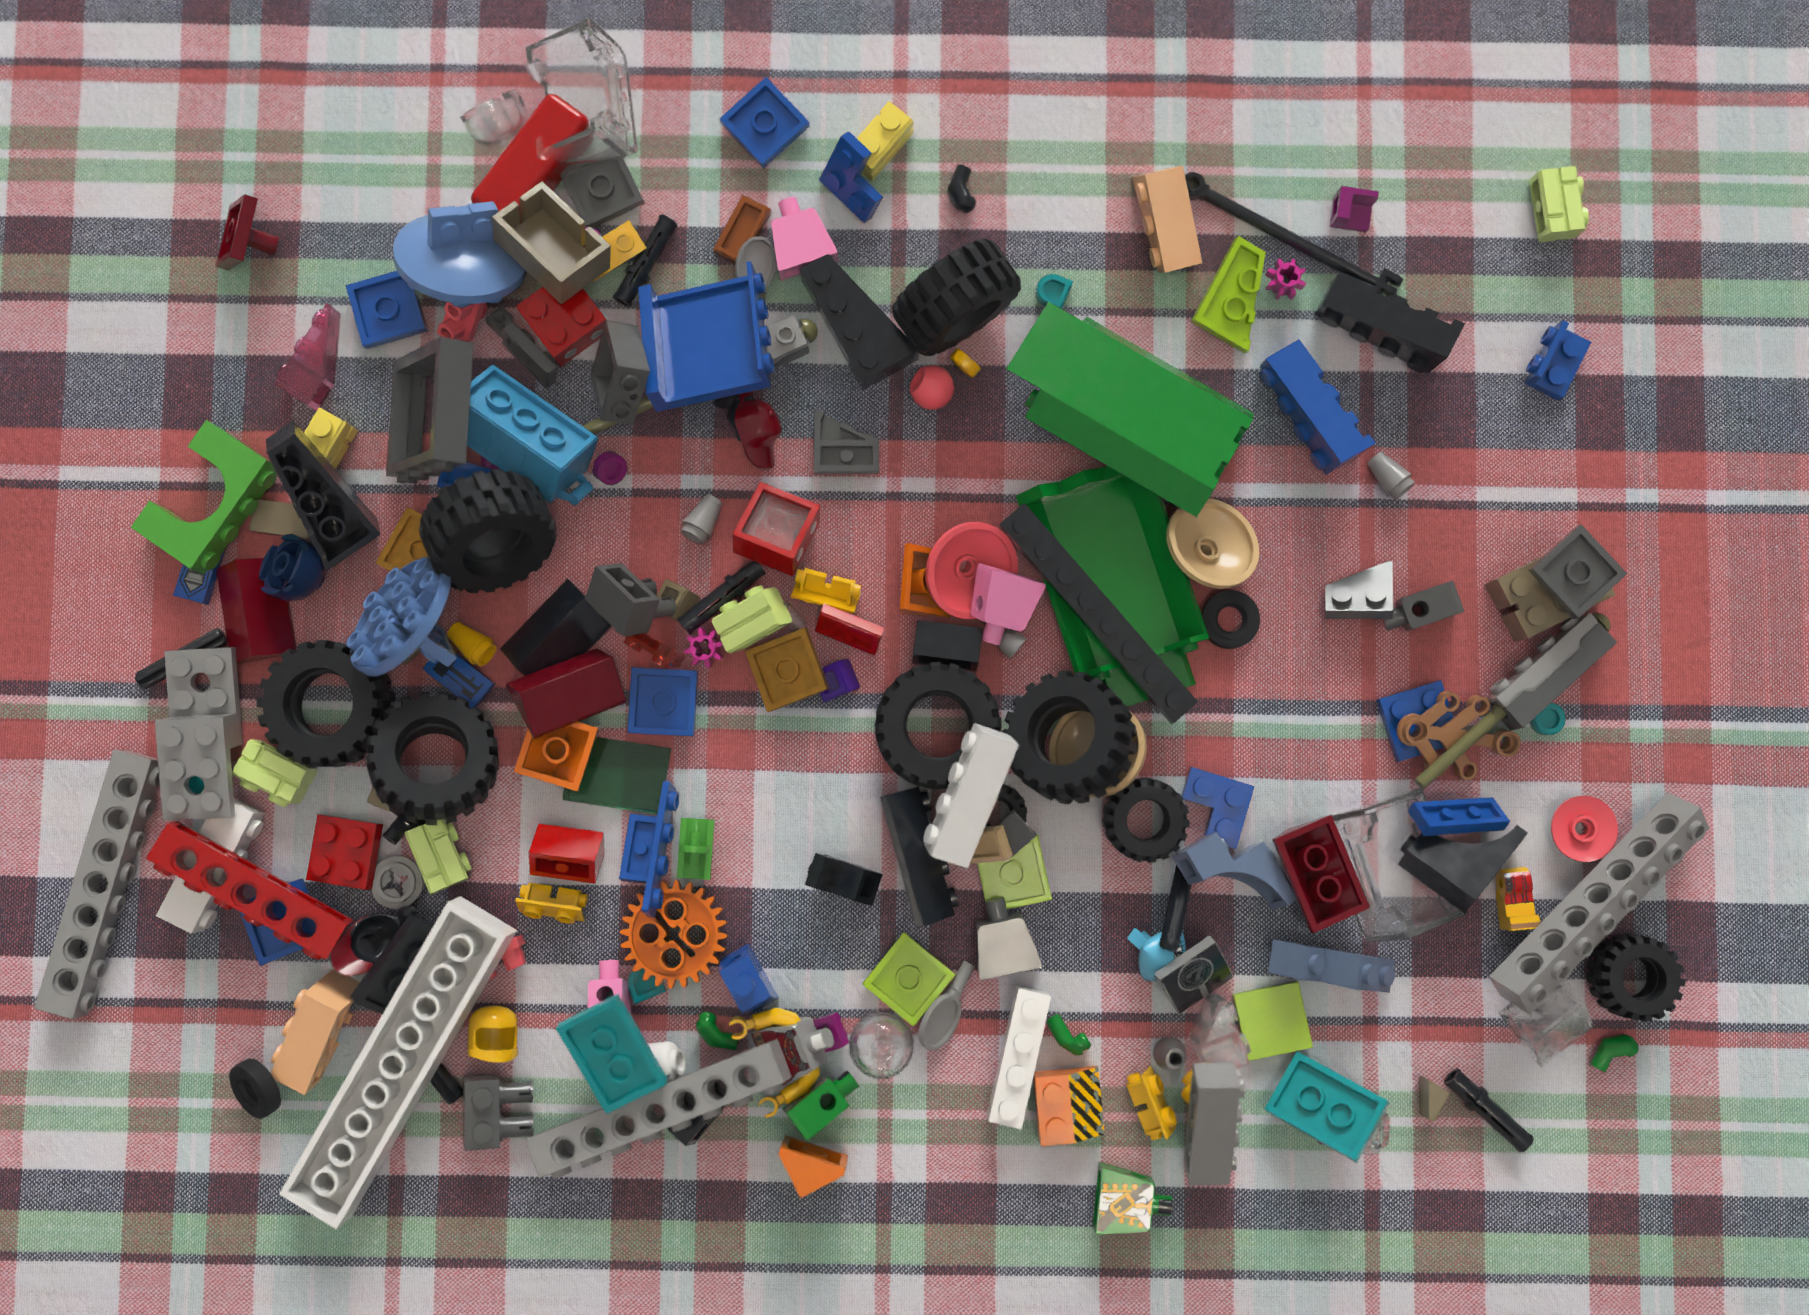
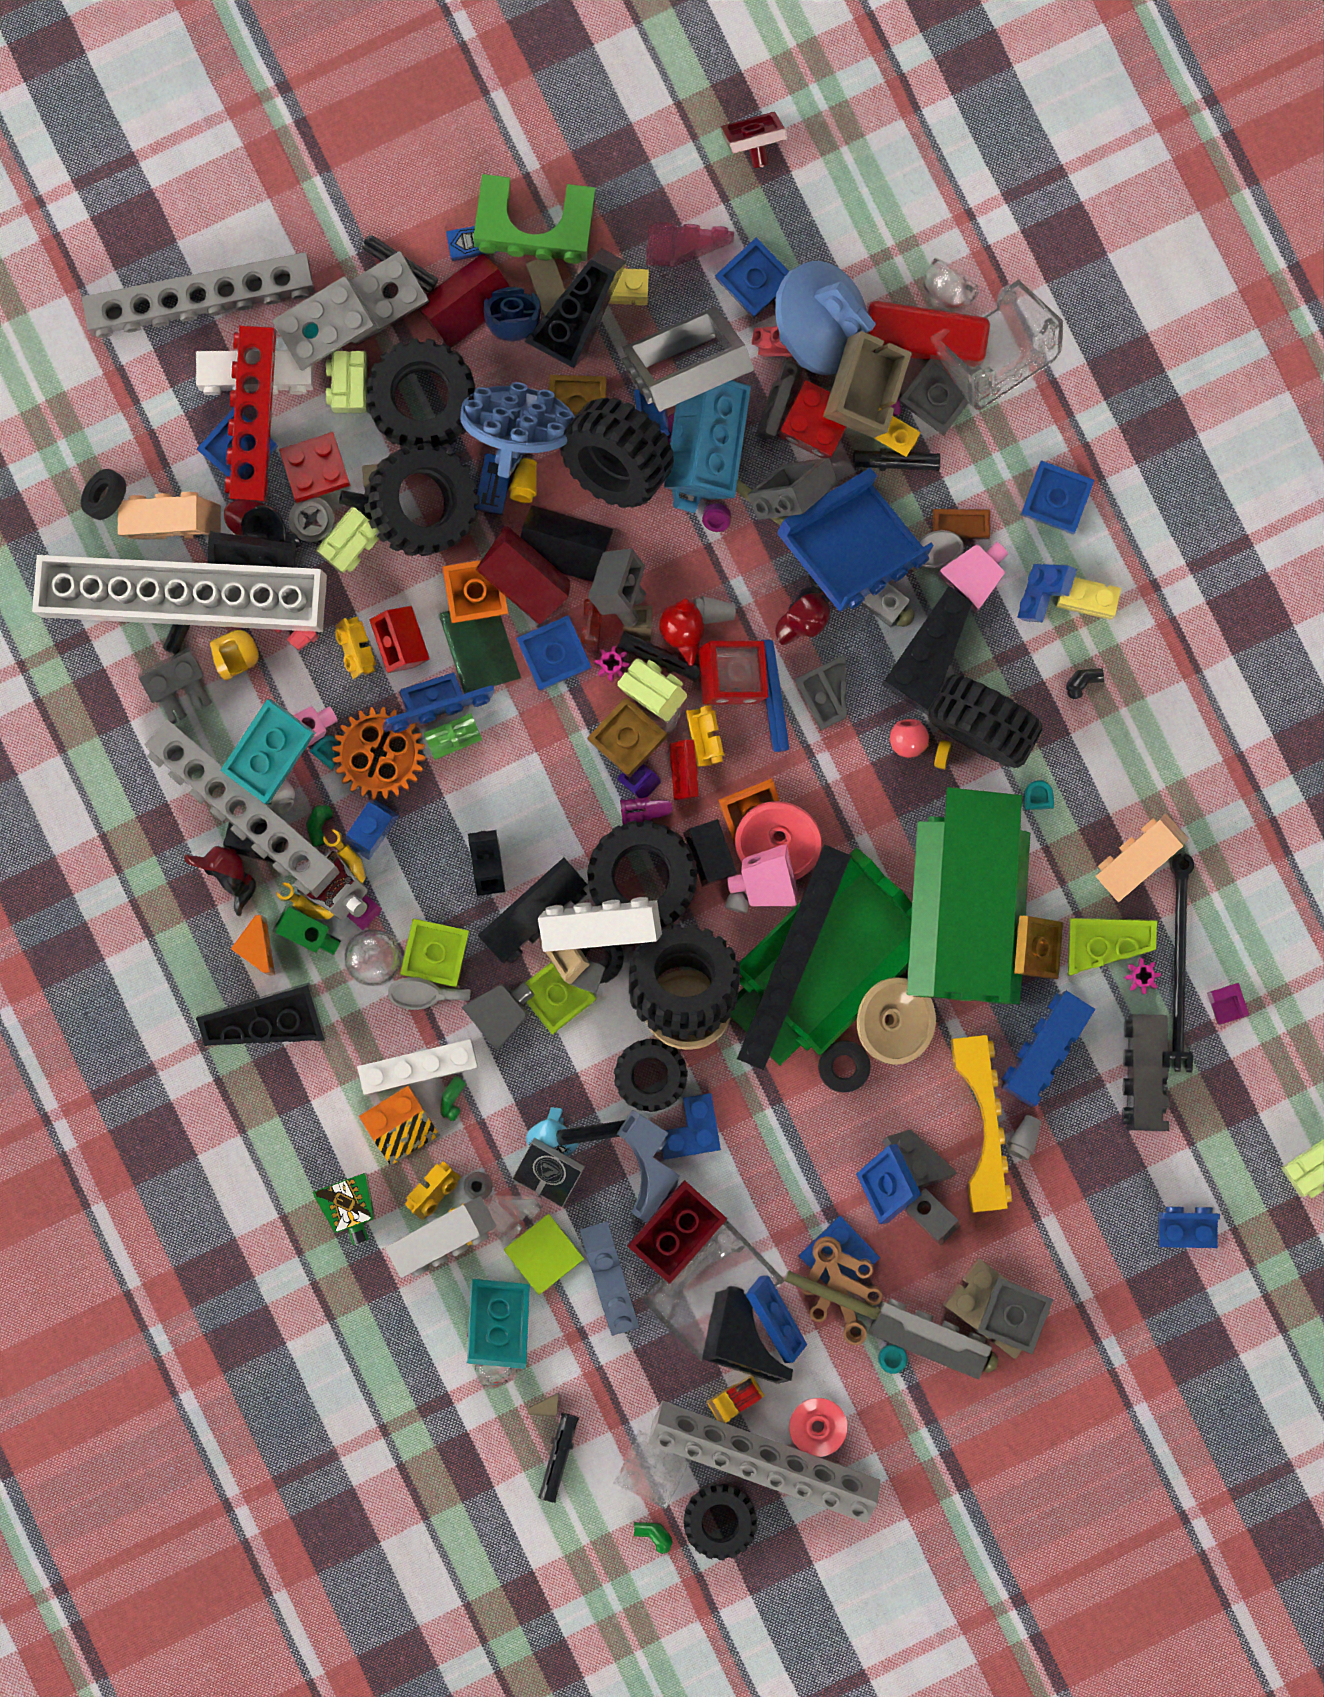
camera: 60 degrees right, 0 degrees up
(704, 557) = (683, 628): none -> red piece
(715, 1150) = (229, 871): none -> hair
(829, 505) = (774, 702): none -> blue axle
(874, 681) = (653, 808): none -> magenta hinge
(893, 1182) = (275, 1017): none -> black wedge
(1208, 365) = (1038, 947): none -> pearl gold plate
(1376, 633) = (888, 1184): none -> blue plate
(1416, 534) = (973, 1063): none -> yellow arch

